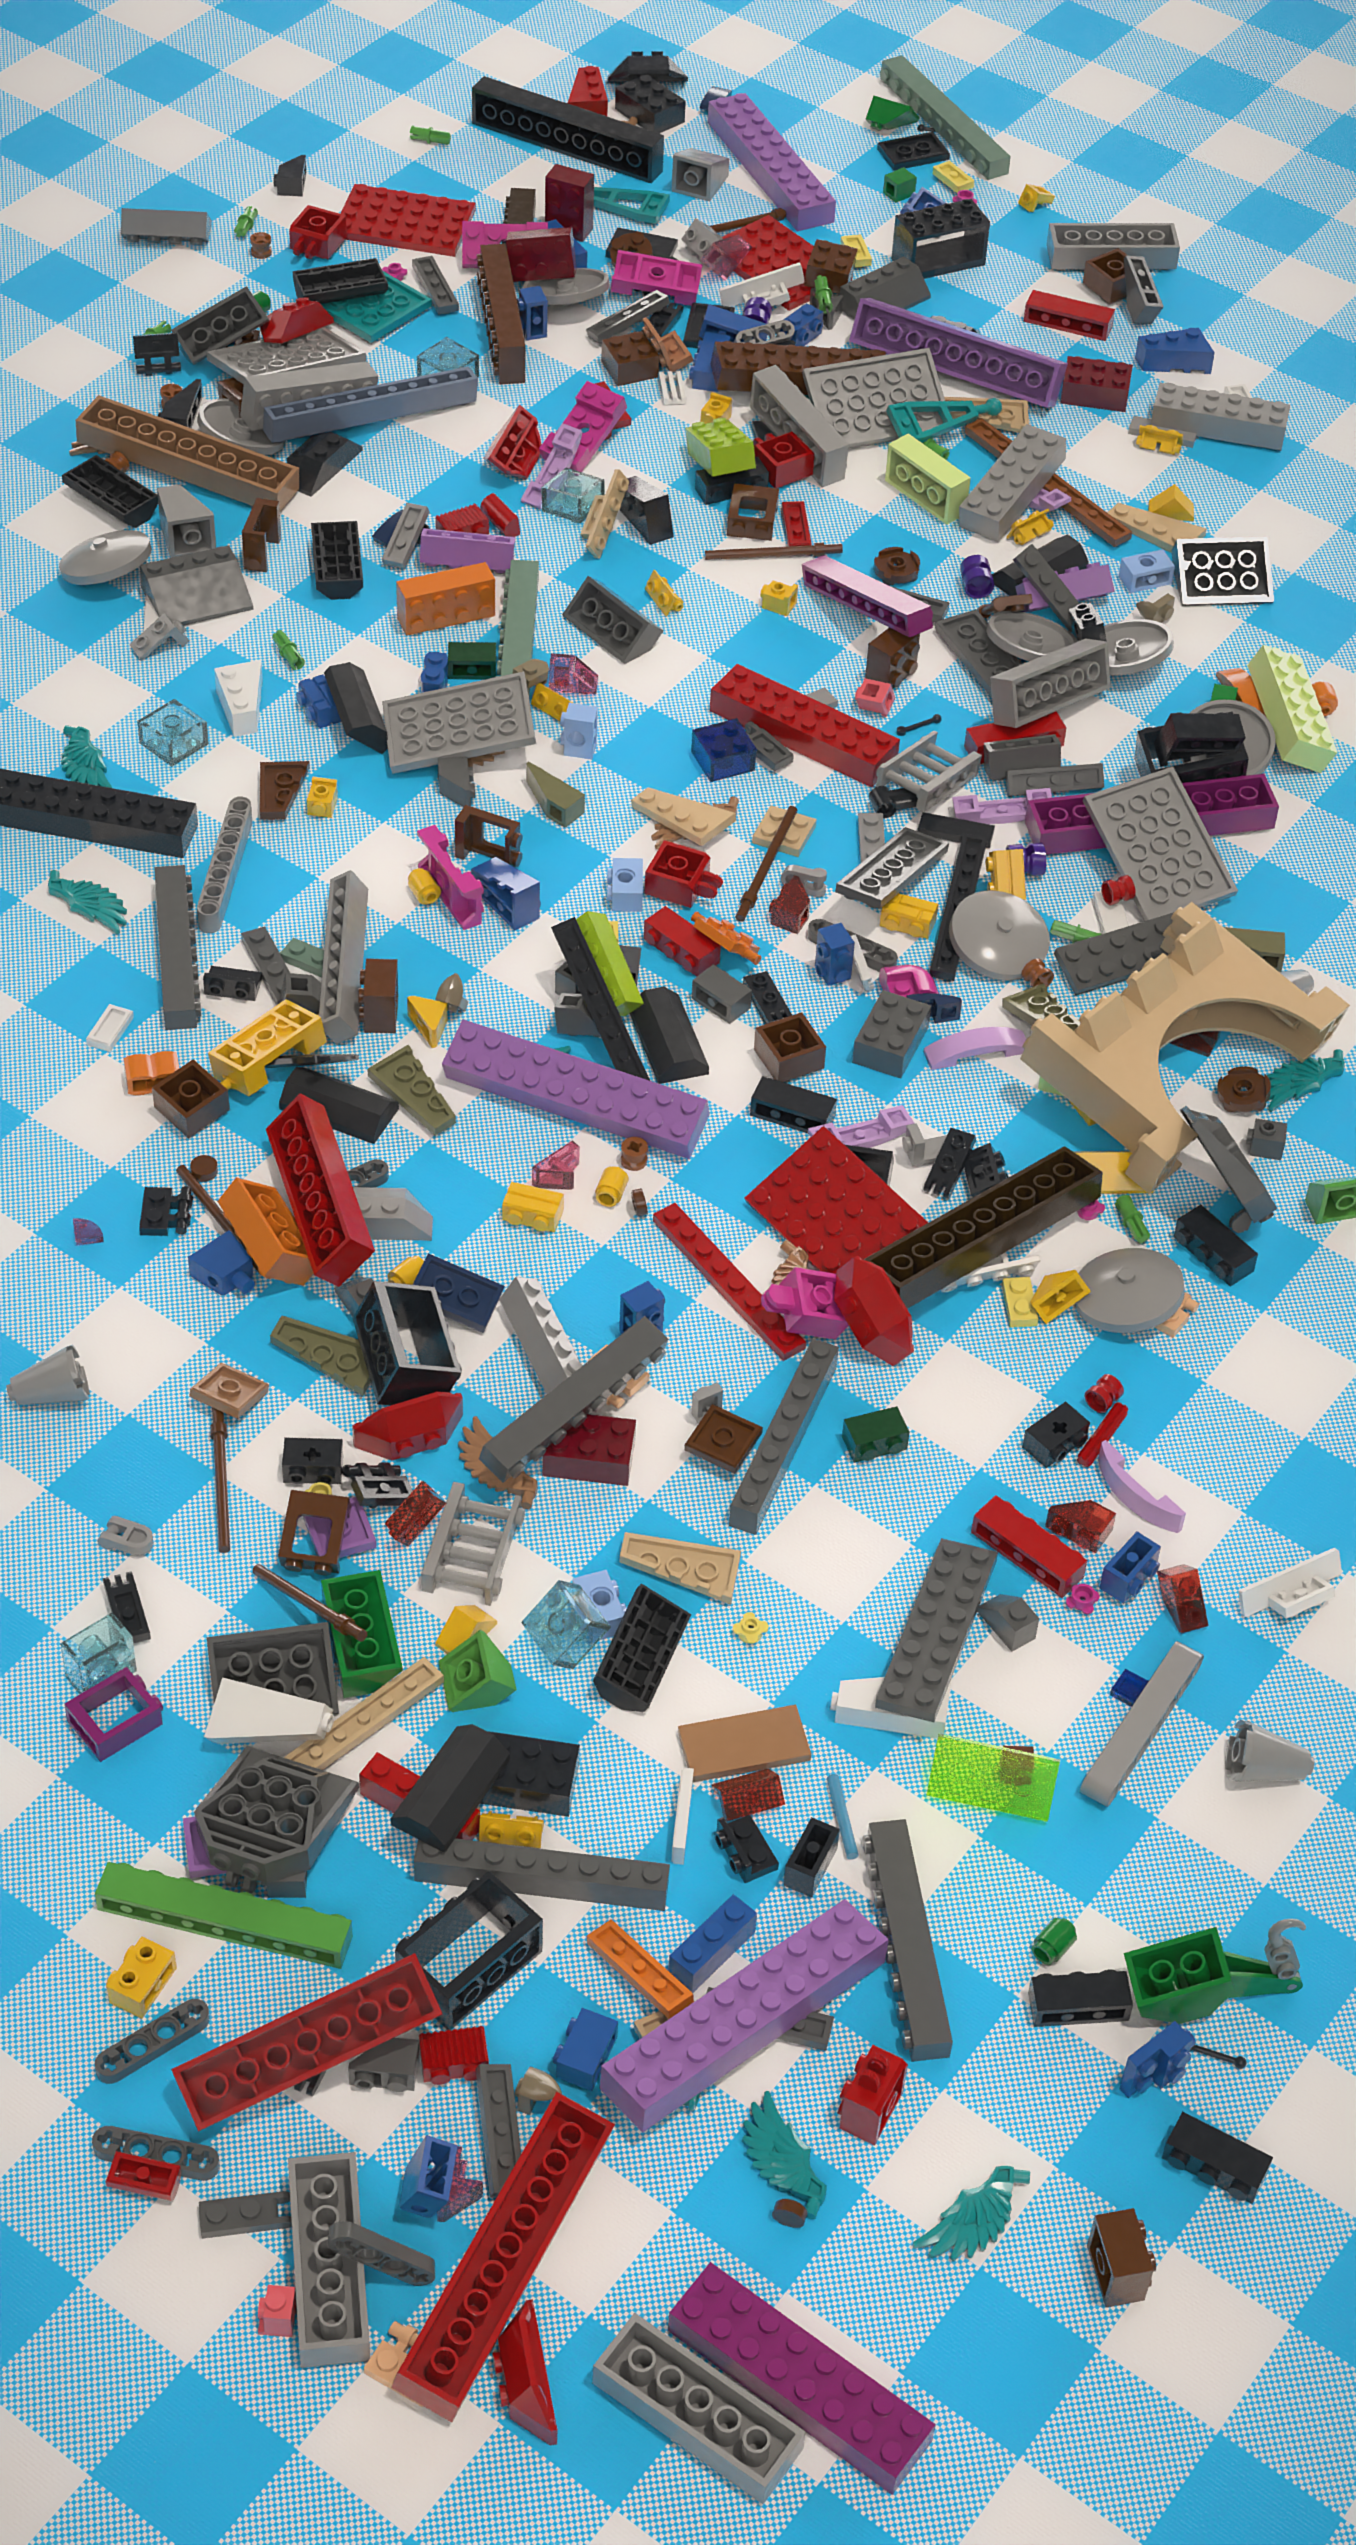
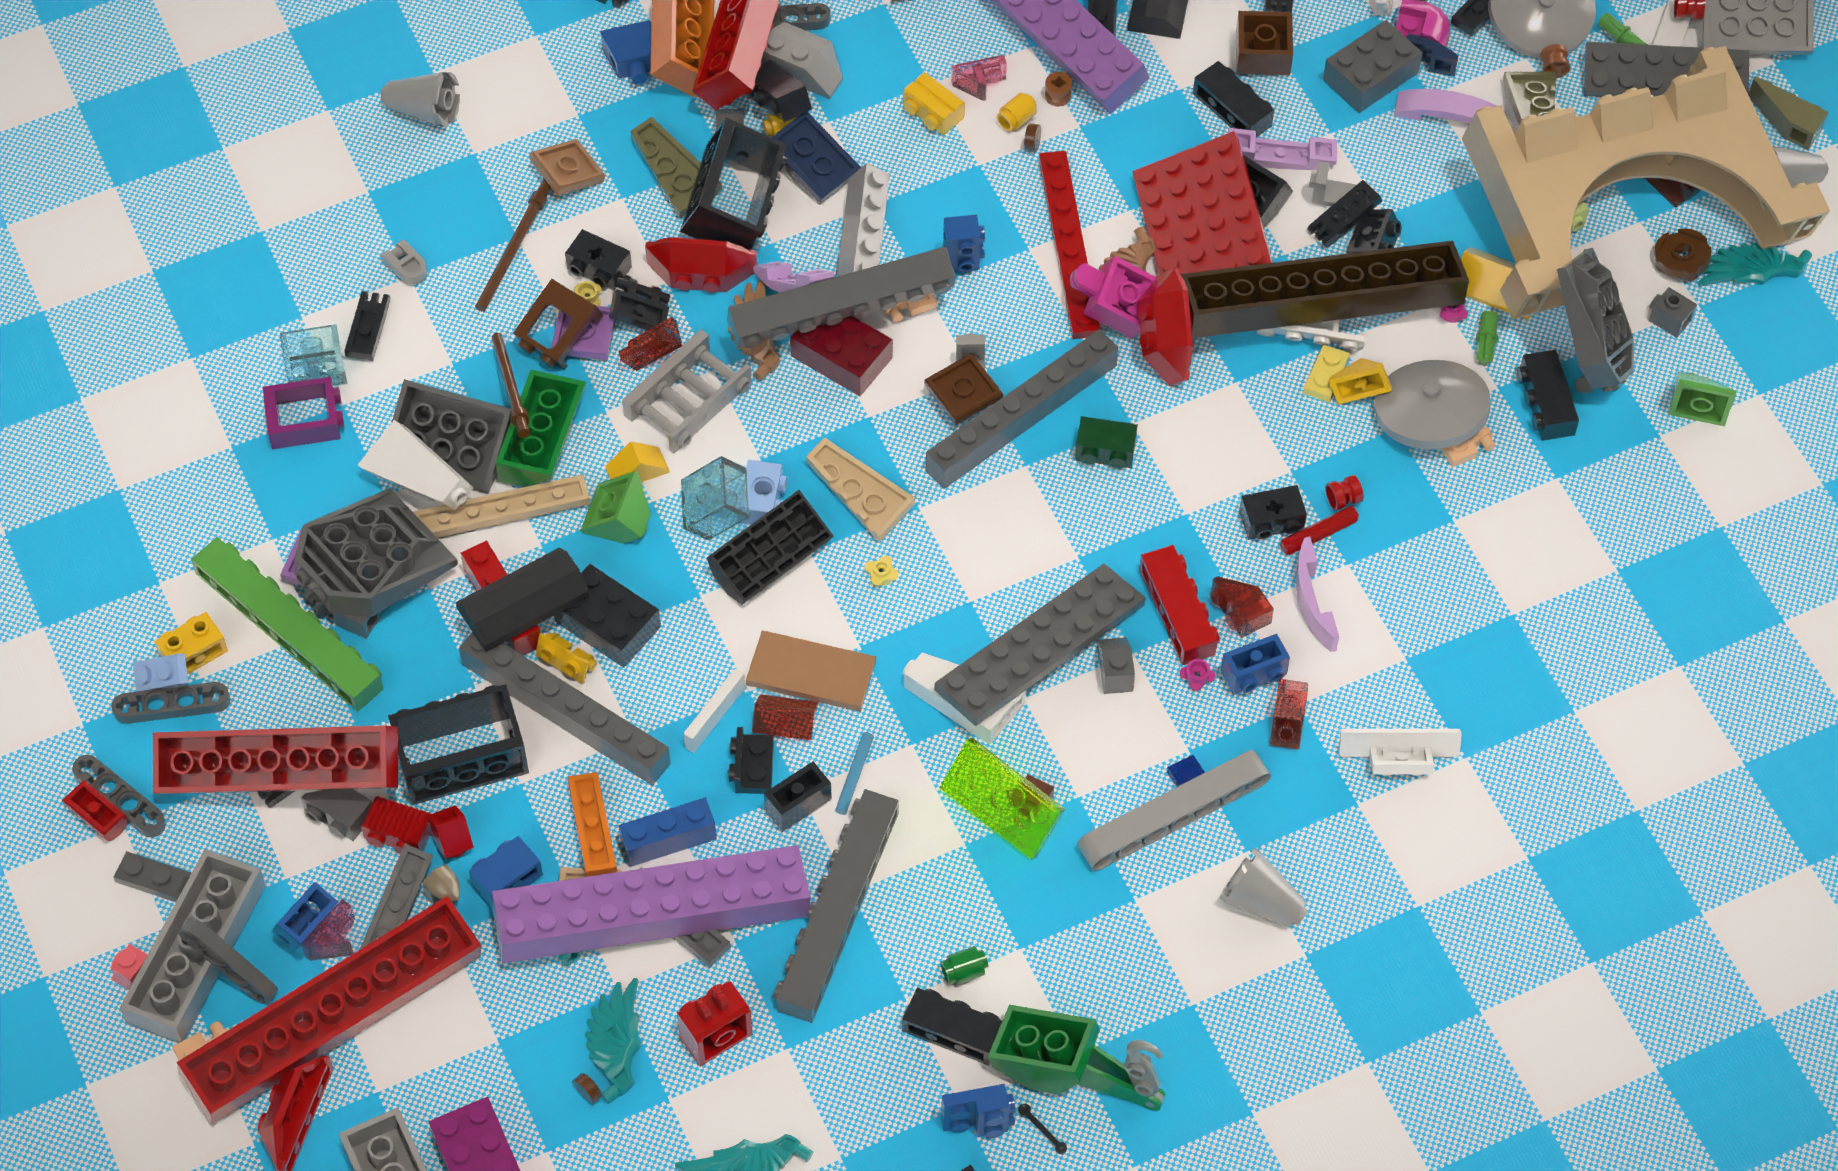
camera: 30 degrees right, 10 degrees up
(131, 2014) = (160, 672): none -> light blue plate
(398, 1247) = (780, 92): none -> black brick
(491, 1409) = (779, 276): none -> lavender slope
(511, 2035) = (450, 832): none -> red brick

